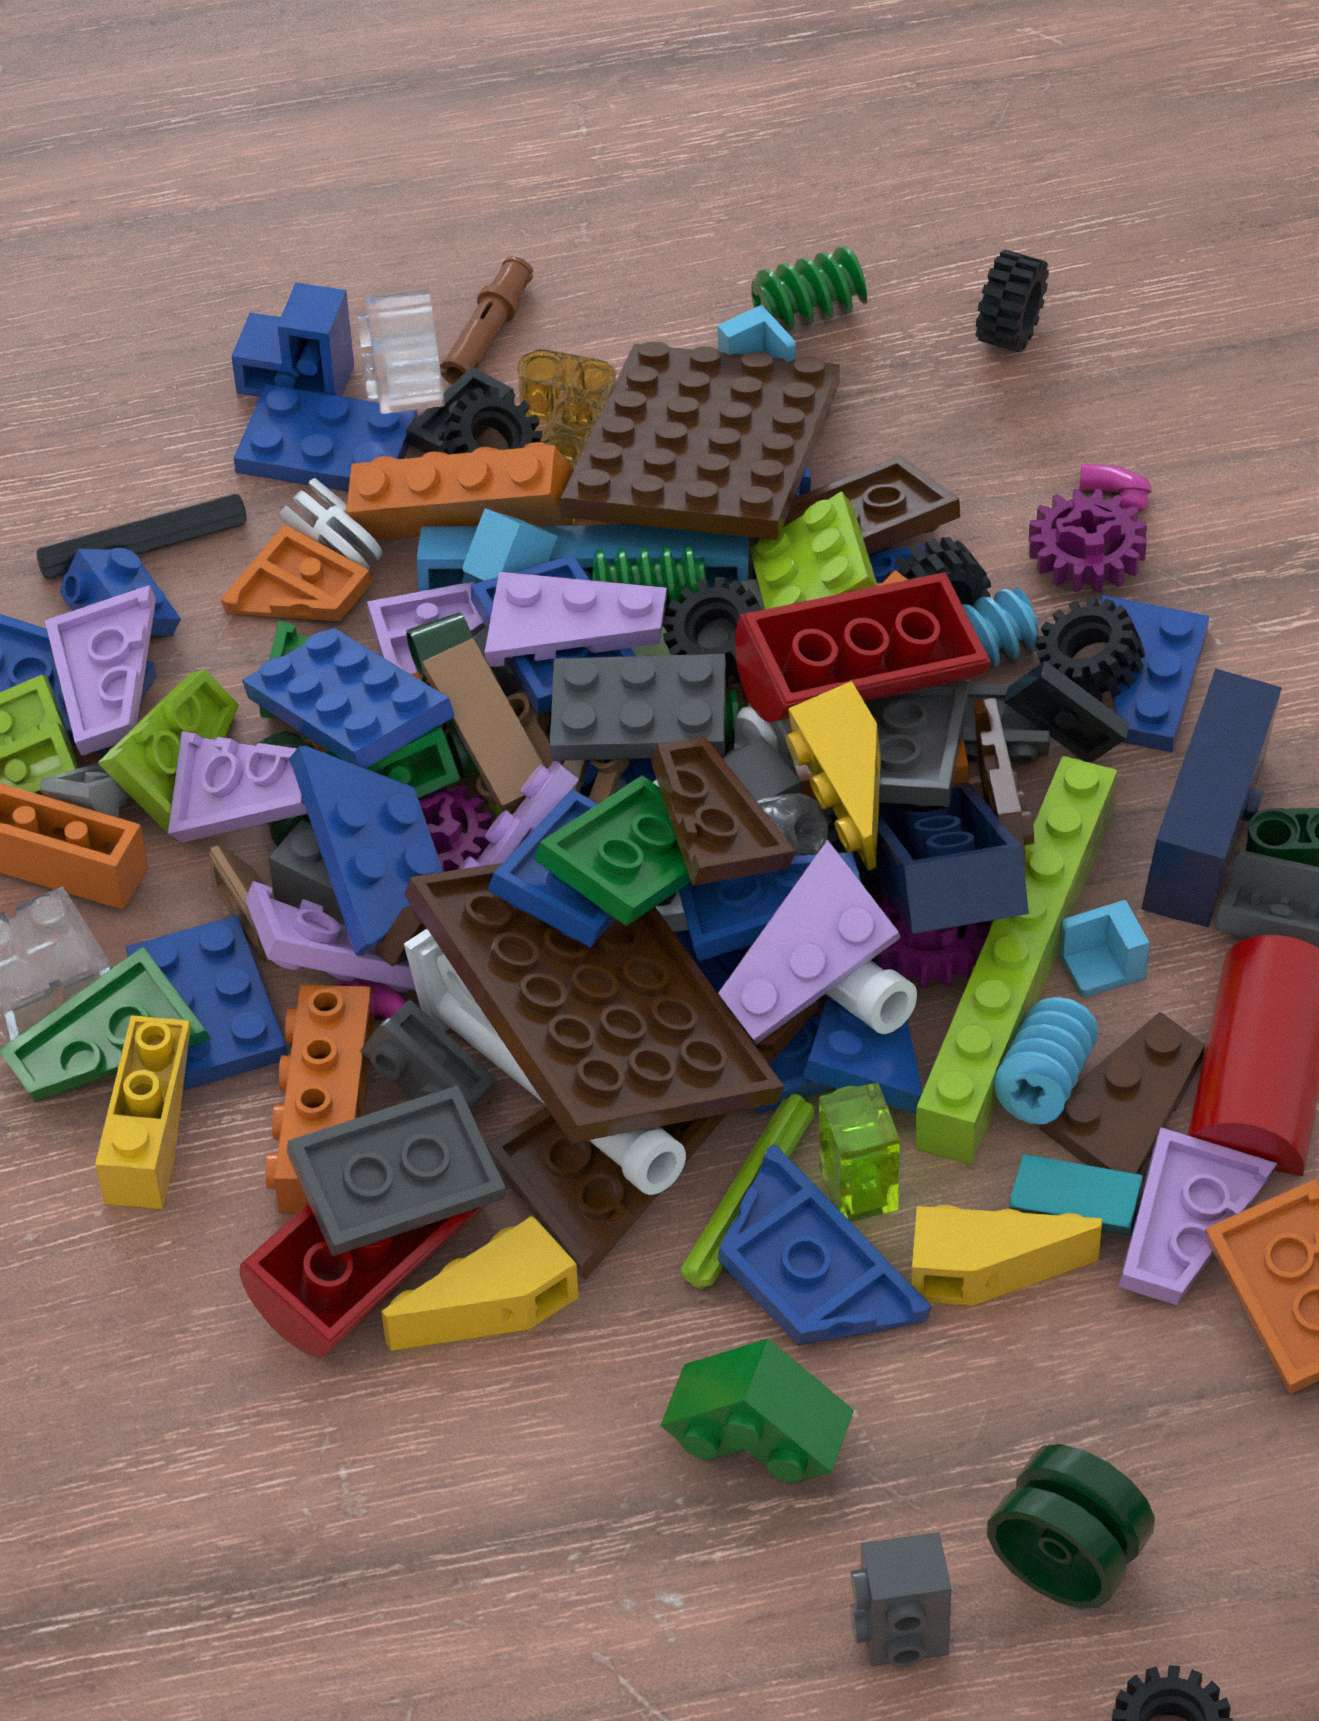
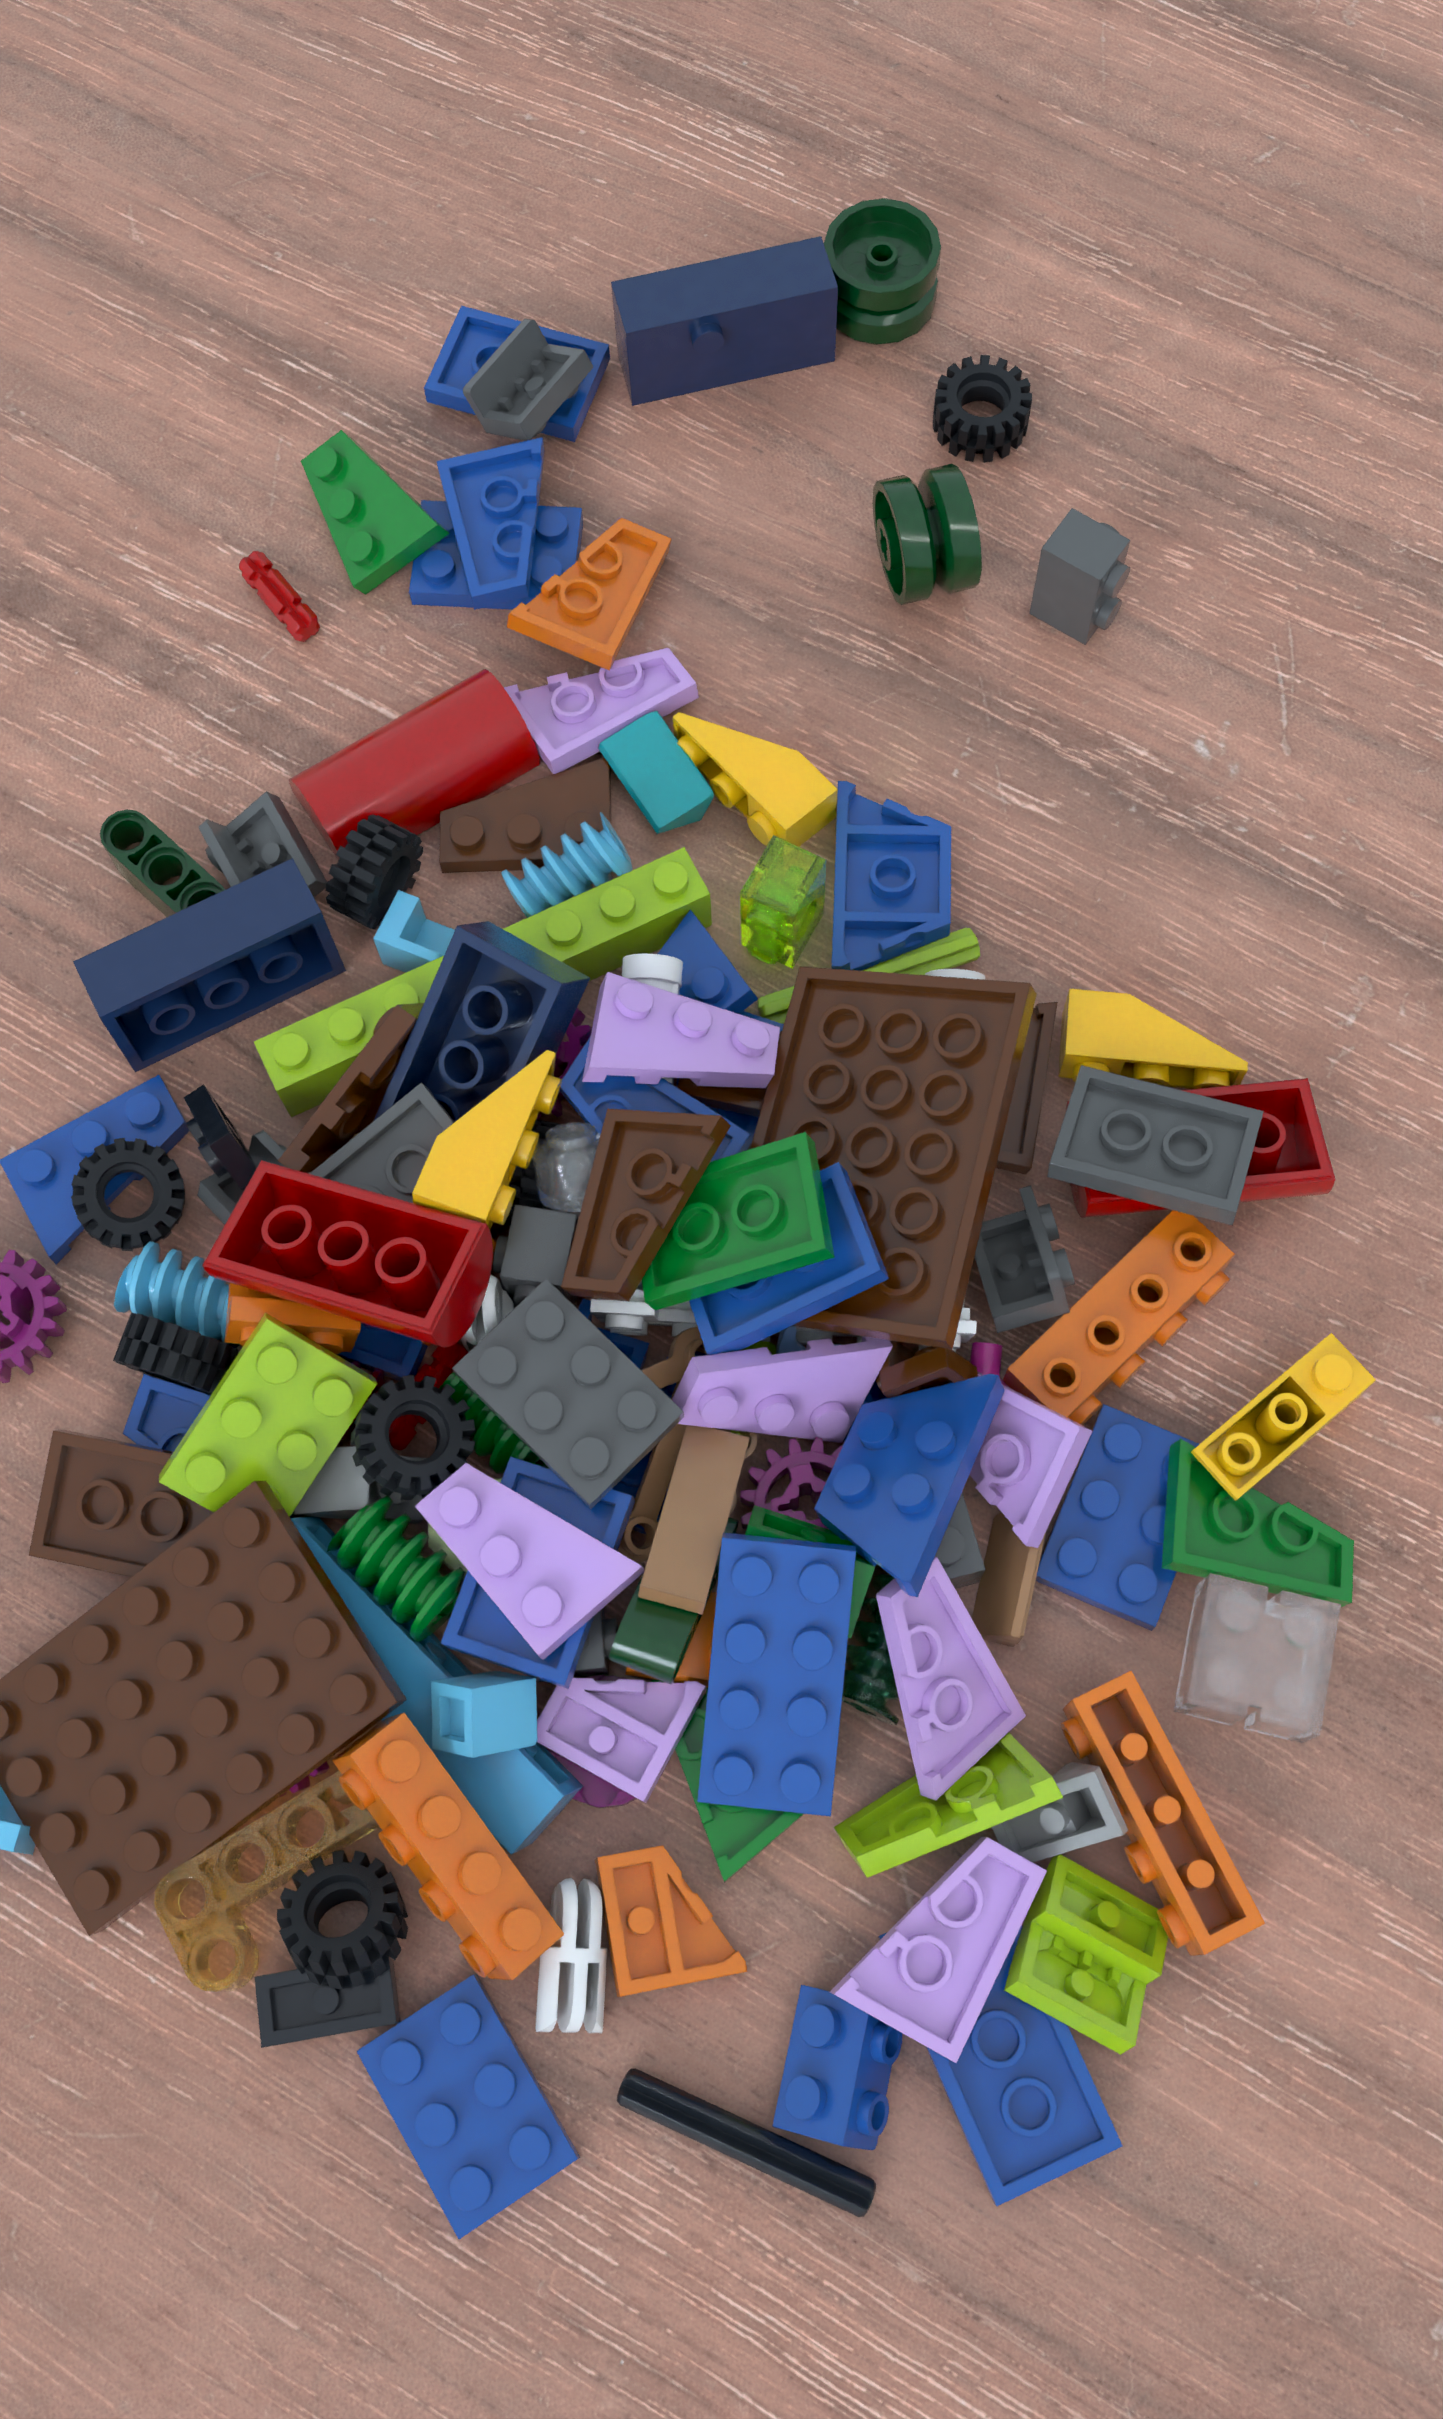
camera: 135 degrees left, 20 degrees up
(300, 349) = (402, 2242): blue brick -> none
(403, 353) = (329, 2086): clear brick -> none
(496, 306) = (159, 2122): dark orange pin -> none
(760, 1404) = (1053, 781): green brick -> none
(1184, 945) = (372, 870): none -> black tyre

